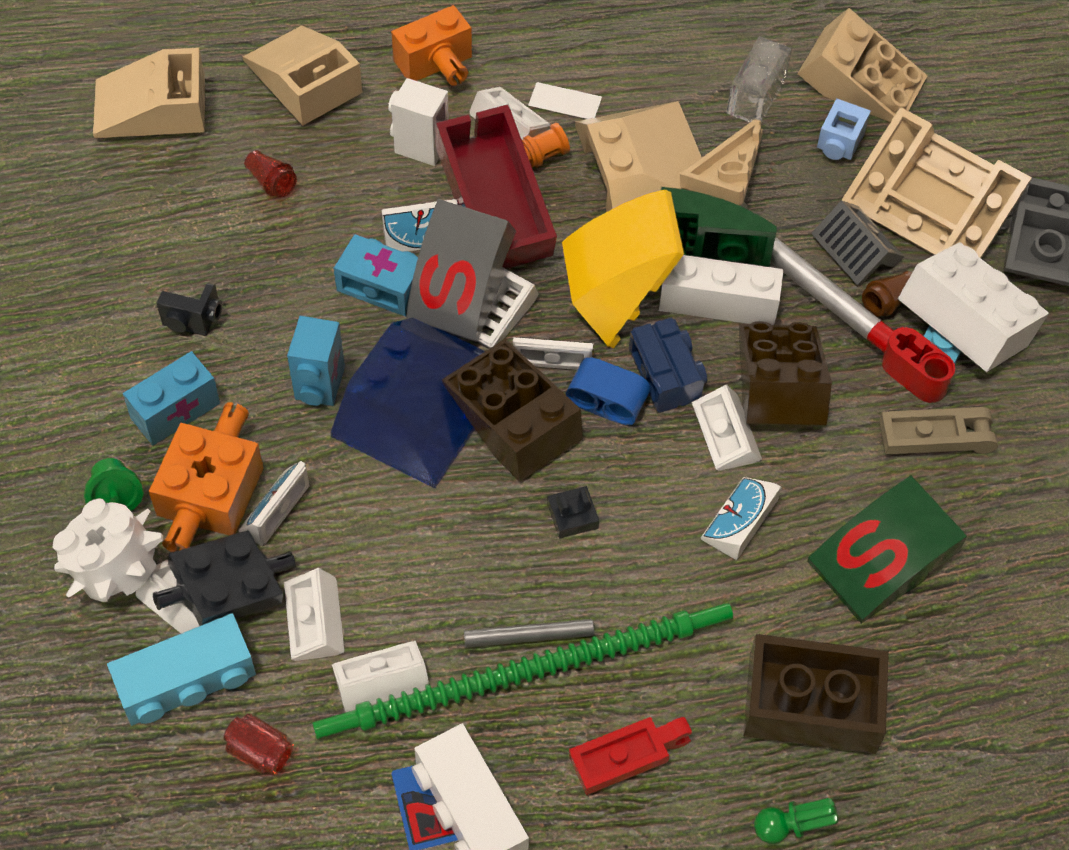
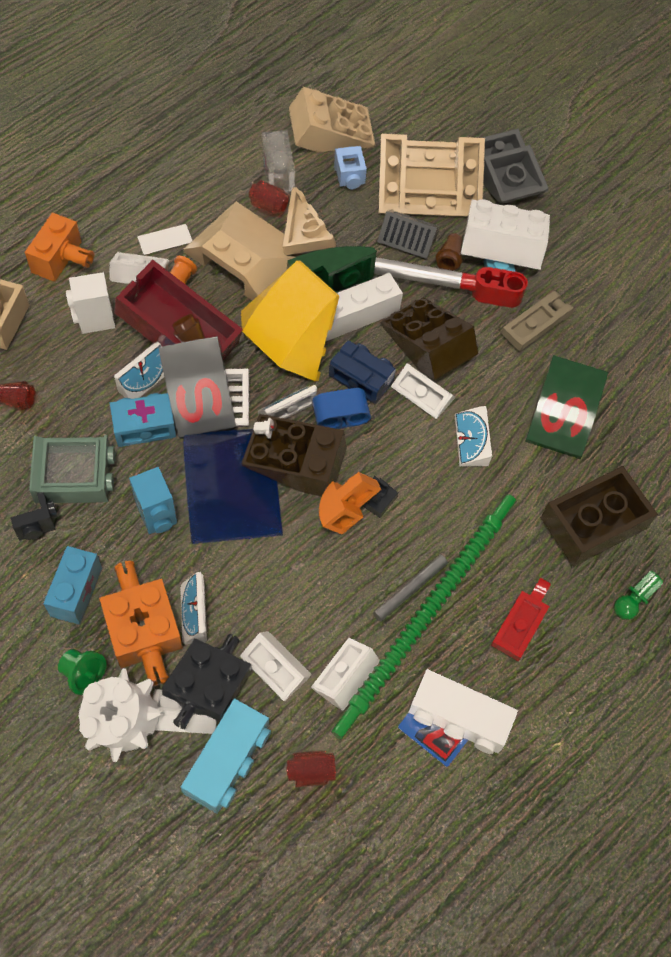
camera: 40 degrees left, 5 degrees up
(266, 282) = (72, 469): none -> sand green window
(491, 200) = (188, 329): none -> reddish brown cone
(493, 354) = (264, 427): none -> white piece
(521, 488) = (341, 503): none -> orange brick
(716, 114) = (268, 197): none -> clear red brick

